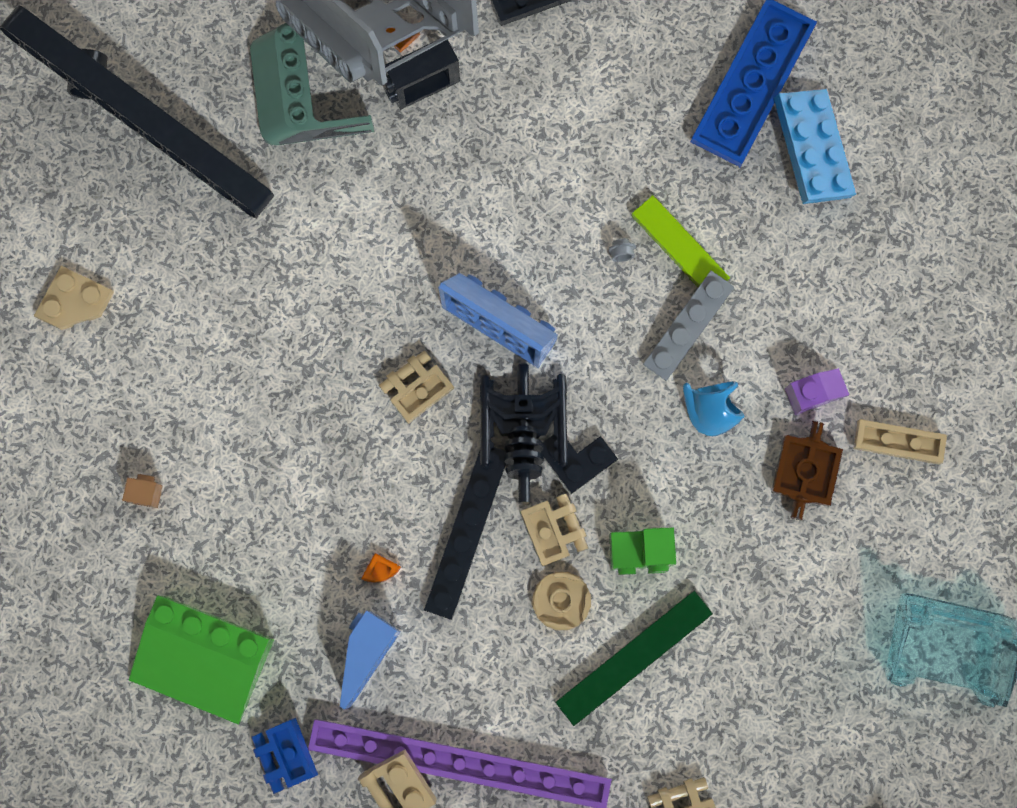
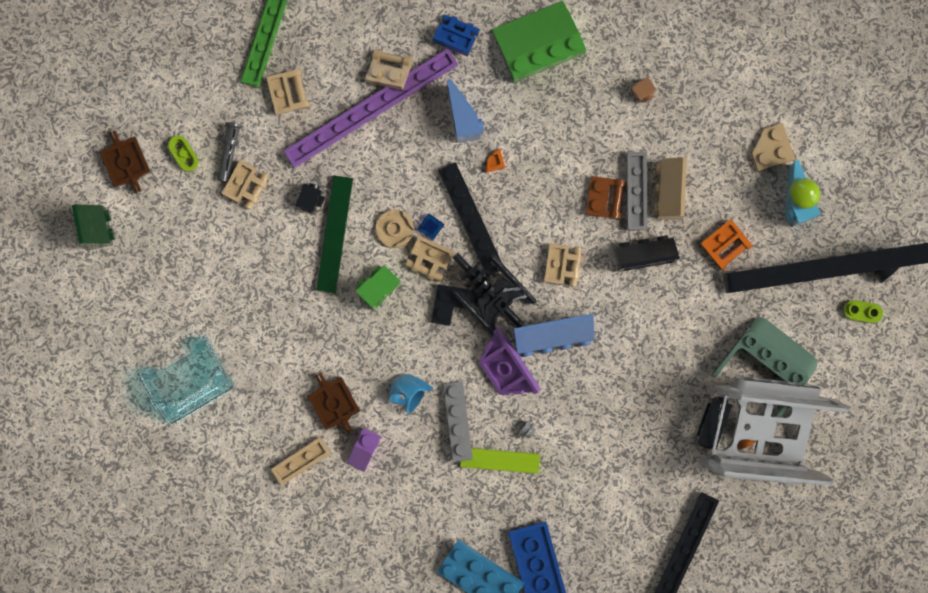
camera: 140 degrees right, 5 degrees up
(83, 206) = (805, 193): none -> lime hair
(96, 218) = (793, 213): none -> medium azure slope
(153, 48) = (863, 311): none -> lime plate
(219, 354) = (671, 188): none -> tan slope
(223, 255) = (722, 239): none -> orange plate
(259, 390) = (636, 190): none -> light grey plate
(306, 423) = (599, 196): none -> dark orange plate
(316, 311) = (646, 253): none -> black slope
(519, 564) = (430, 226): none -> clear blue tile
(583, 331) = (506, 367): none -> medium lavender wing
(625, 725) = (310, 198): none -> black brick

